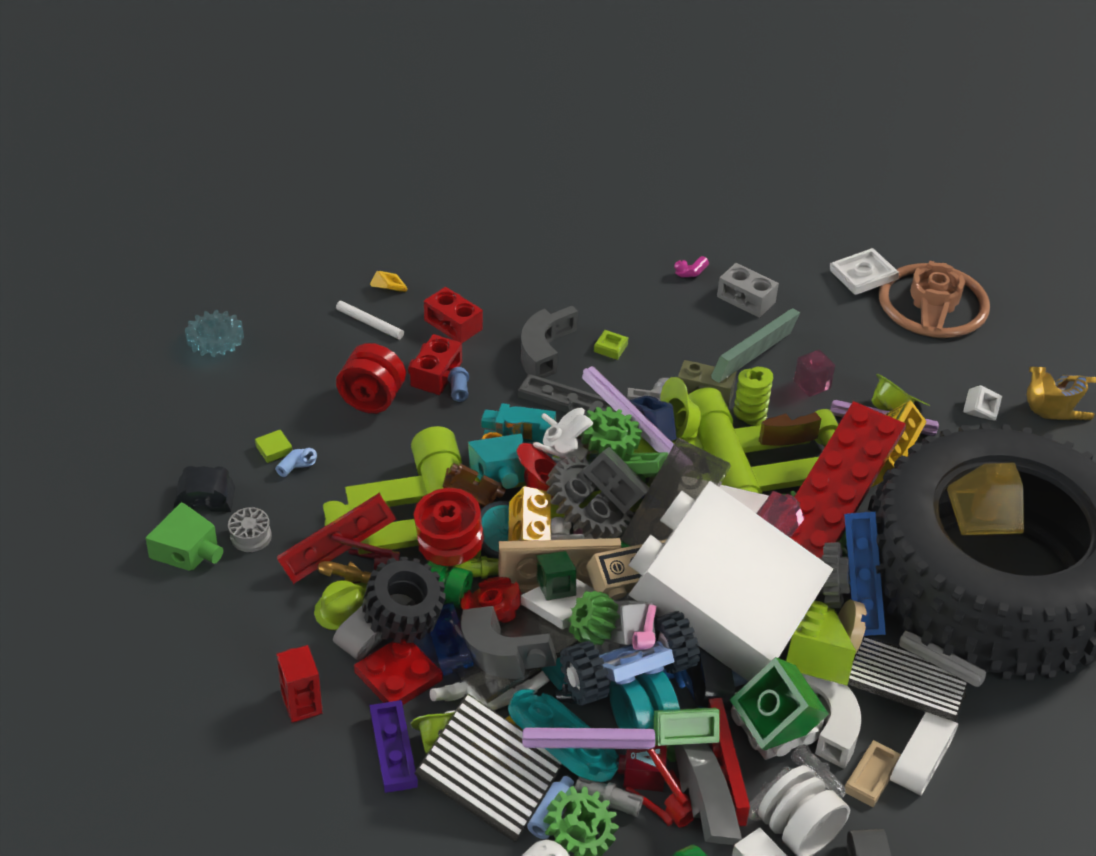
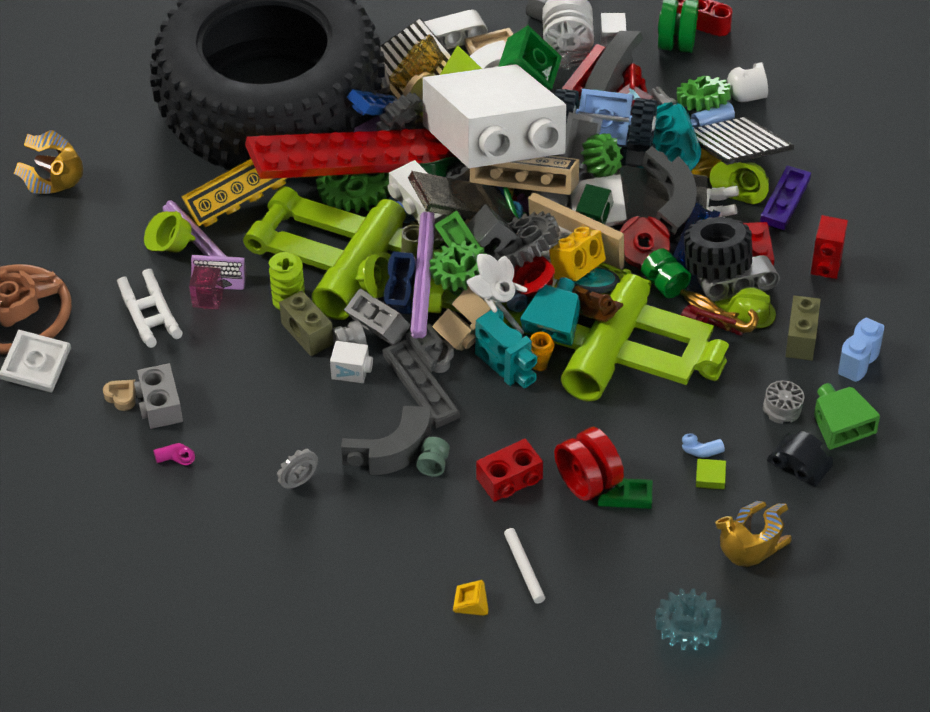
camera: 140 degrees left, 5 degrees up
(201, 394) = (747, 548): none -> pearl gold piece
(203, 606) = (861, 349): none -> light blue brick
(275, 599) = (803, 328): none -> olive brick
(320, 547) = (739, 335): red plate -> none
(325, 404) = (629, 494): none -> green tile
(449, 526) = (647, 267): red wheel -> none
(453, 315) = (447, 515): red brick -> none
(458, 378) = (508, 438): medium blue pin -> none
(504, 347) = (433, 456): none -> sand green wheel
(588, 738) = (669, 103): lavender axle -> none
(589, 285) = (297, 469): none -> light grey gear
(611, 344) = (332, 418): lime tile -> none
(639, 375) = (350, 362): none -> white brick
(645, 639) = (587, 109): bright pink hand -> none
(686, 726) = (585, 83): bright green tile -> none
(754, 345) = (236, 312): sand green tile -> none
(782, 512) = (403, 147): clear pink brick -> none
(784, 431) = (295, 224): reddish brown slope -> none
(786, 287) = (121, 394): none -> tan tile
(824, 397) = (232, 269): none -> slope
(850, 343) = (155, 298): none -> white piece
(892, 656) = (422, 57): none -> clear yellow slope
(982, 403) = (107, 204): white slope -> none
(989, 500) = (279, 41): clear yellow slope -> none

